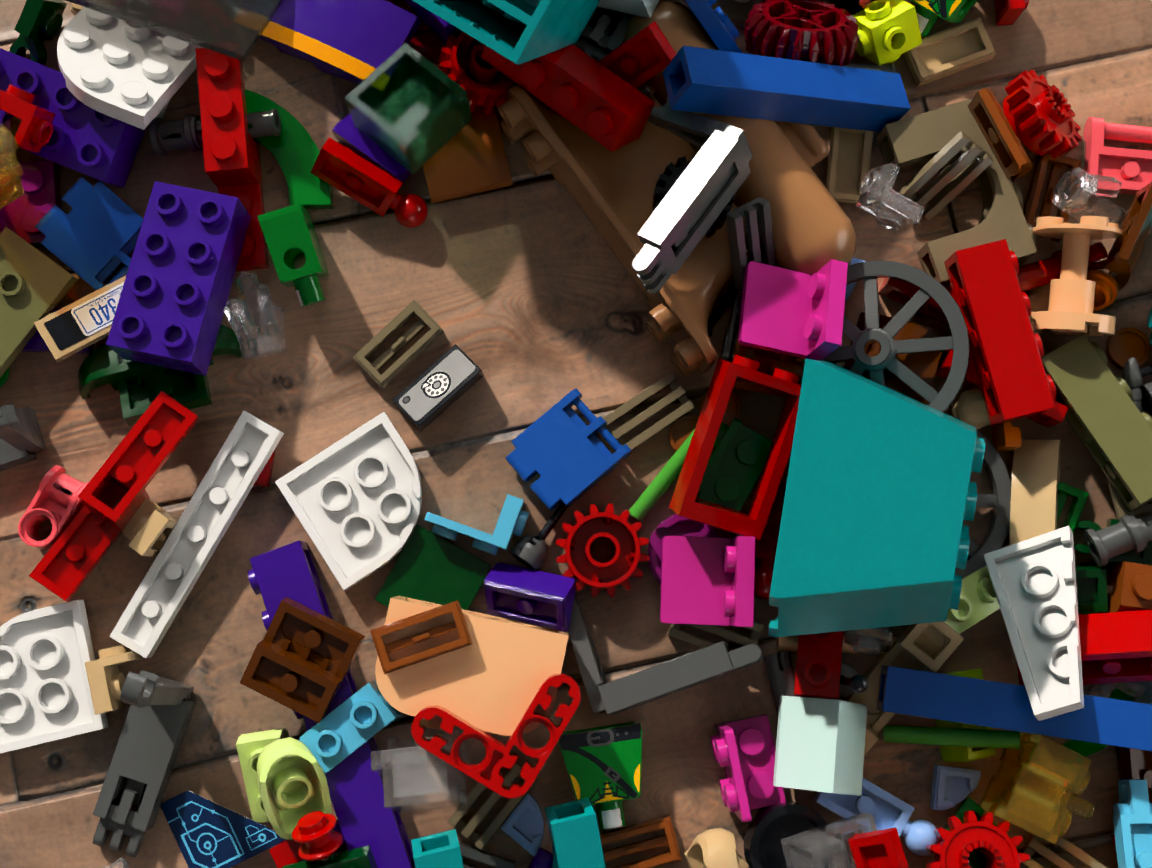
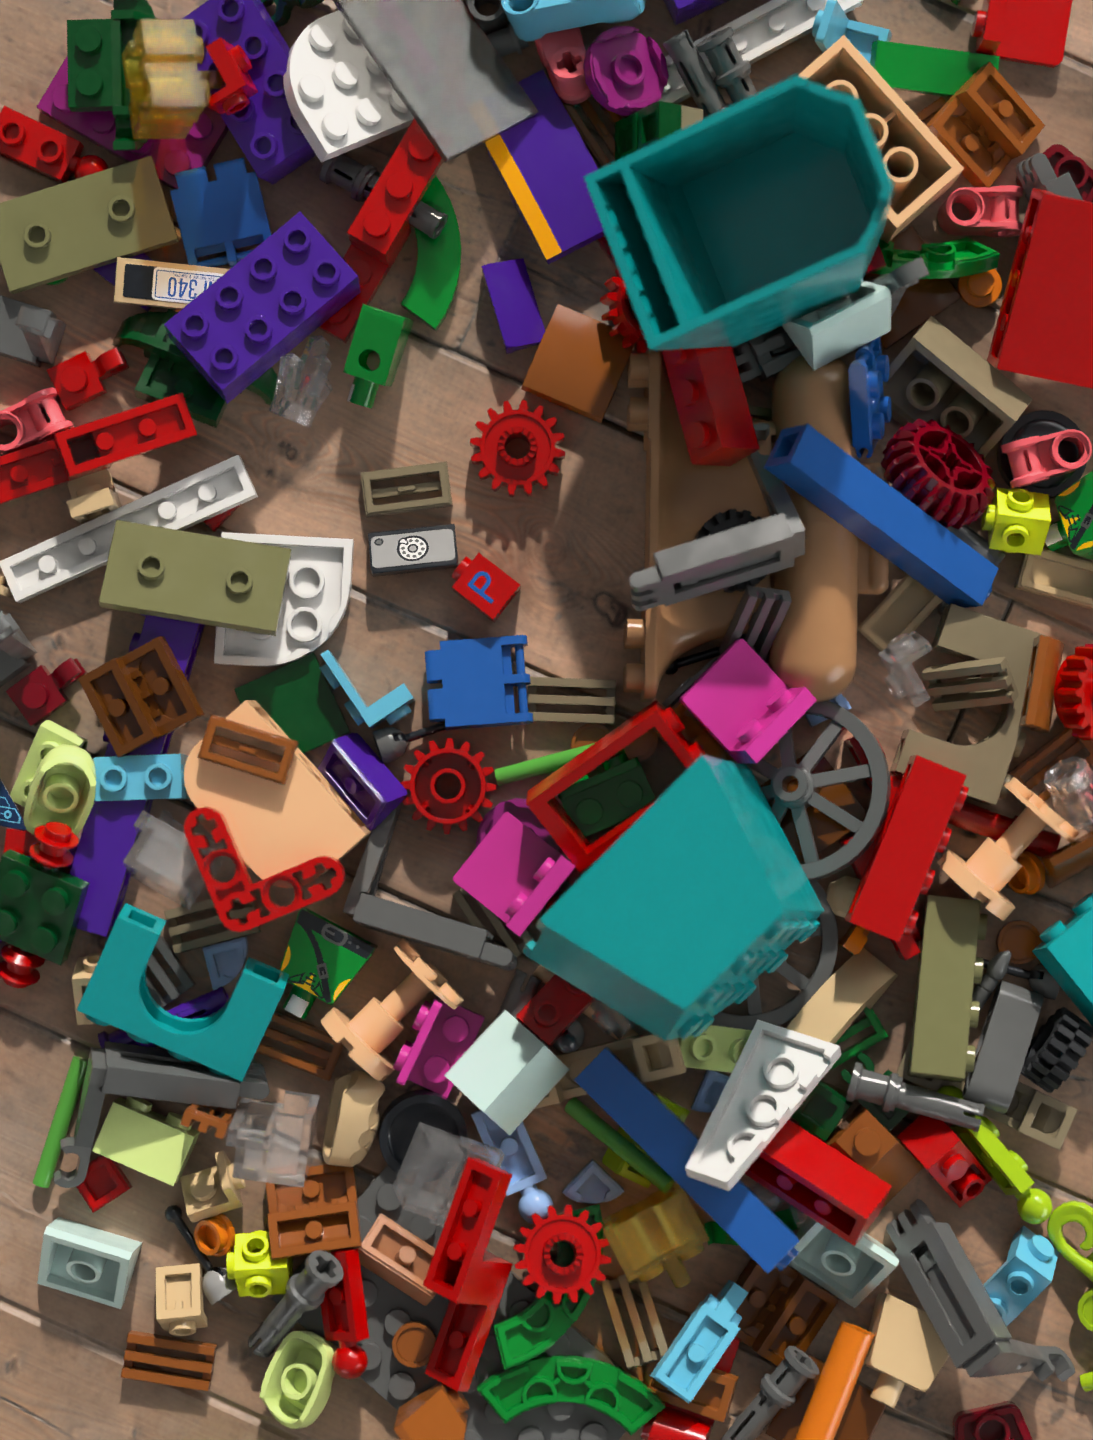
camera: 40 degrees right, 5 degrees up
(76, 443) = (81, 379): none -> red plate
(220, 716) = (42, 693): none -> dark red plate
(278, 532) = (195, 578): none -> olive plate
(367, 184) = (478, 336): red plate -> none
(409, 107) = (557, 298): clear green piece -> none
(459, 228) = (517, 425): none -> red gear
(514, 373) = (484, 586): none -> red brick
(640, 56) = (776, 399): red plate -> none
(689, 782) = (380, 1021): none -> light nougat piece
(989, 639) = (709, 1091): none -> light blue tile

